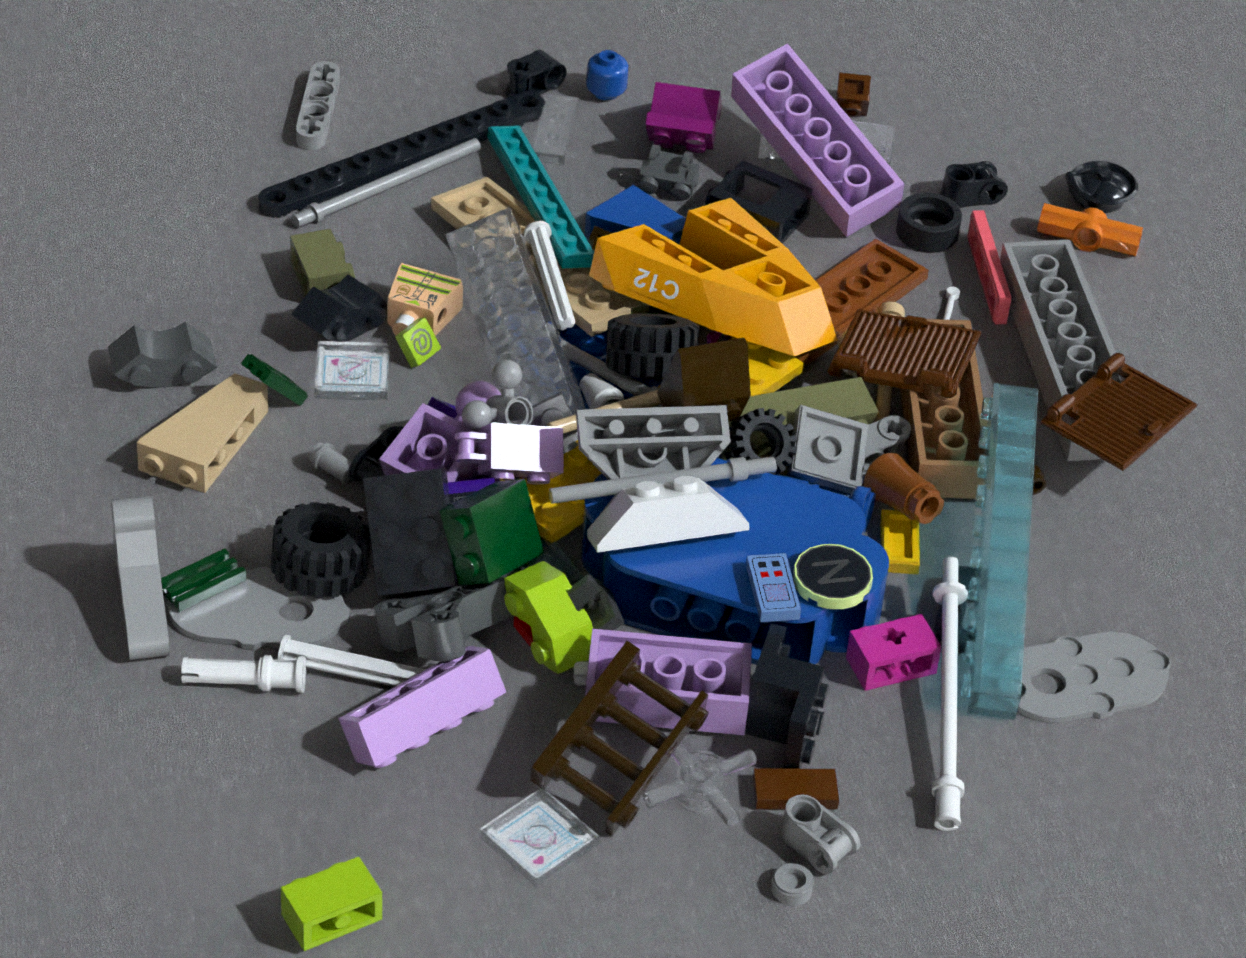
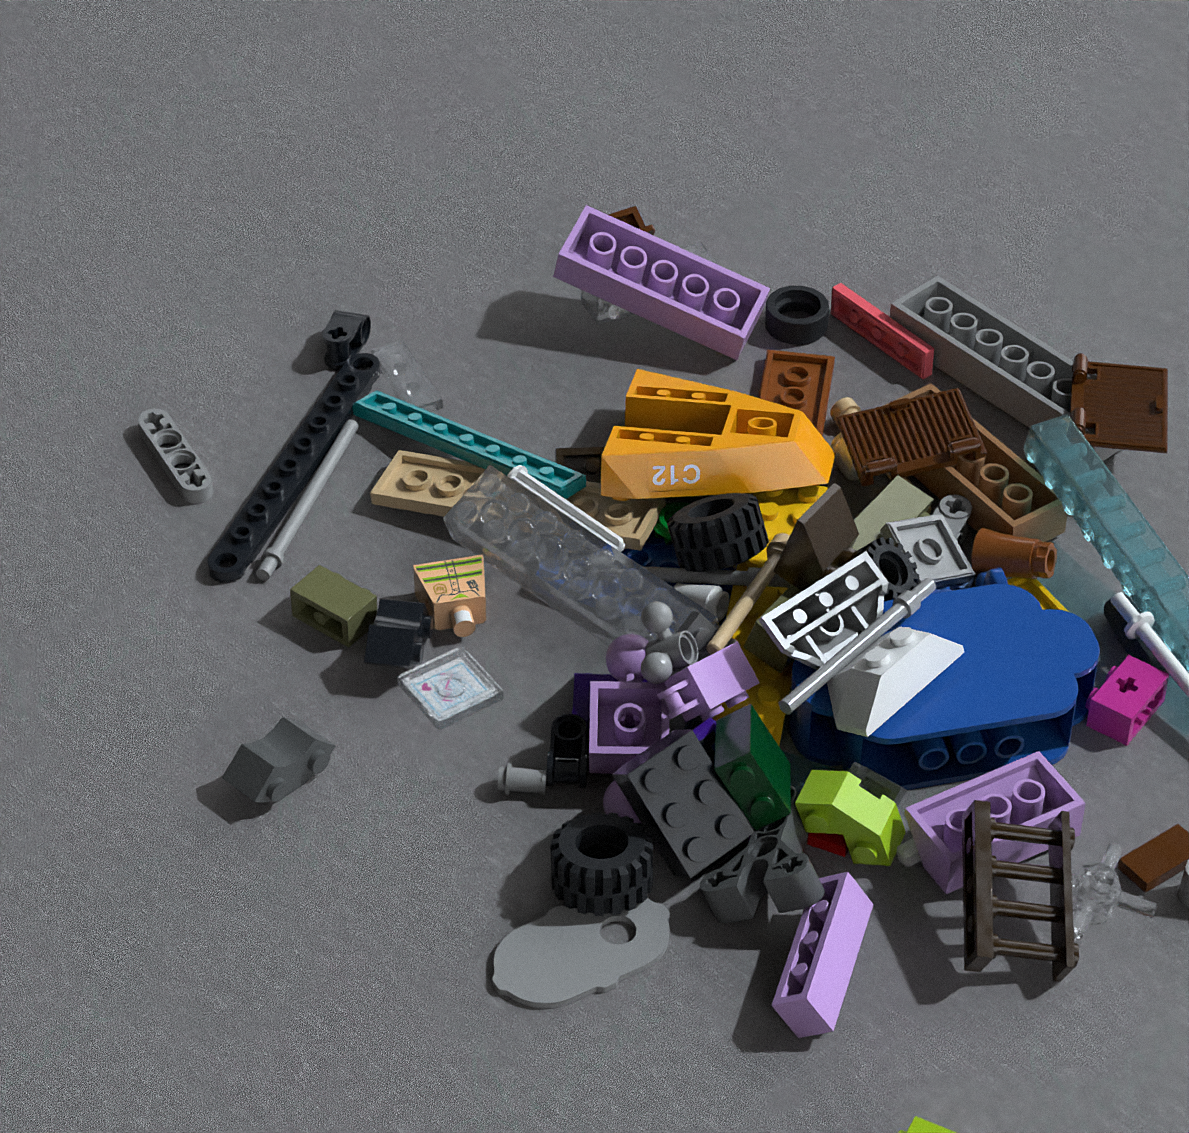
camera: 30 degrees left, 0 degrees up
(139, 577) = (458, 957): light grey beam -> none
(199, 576) = (527, 925): dark green tile -> none
(205, 434) = (388, 816): tan slope -> none
(265, 673) = (653, 1003): white pin -> none
(274, 379) = (407, 728): dark green tile -> none
(347, 663) = (718, 953): white axle -> none
(418, 342) = (488, 632): lime tile -> none
(539, 837) = (1010, 1015): clear tile -> none
(607, 75) = (412, 307): blue head -> none
(633, 209) = (570, 425): blue slope -> none
(669, 173) = (548, 372): dark grey piece -> none
(684, 116) = (519, 315): magenta bracket -> none
(773, 587) = (1027, 692): medium blue tile -> none
(781, 213) = (675, 353): black window -> none
(786, 700) = (1109, 782): black bracket -> none
(832, 576) = (1062, 657): tile -> none
(952, 294) = (868, 368): white hinge -> none
(969, 182) = (800, 264): black piece -> none
(1090, 229) = (925, 260): orange piece -> none
(1101, 185) = (898, 218): black piece -> none

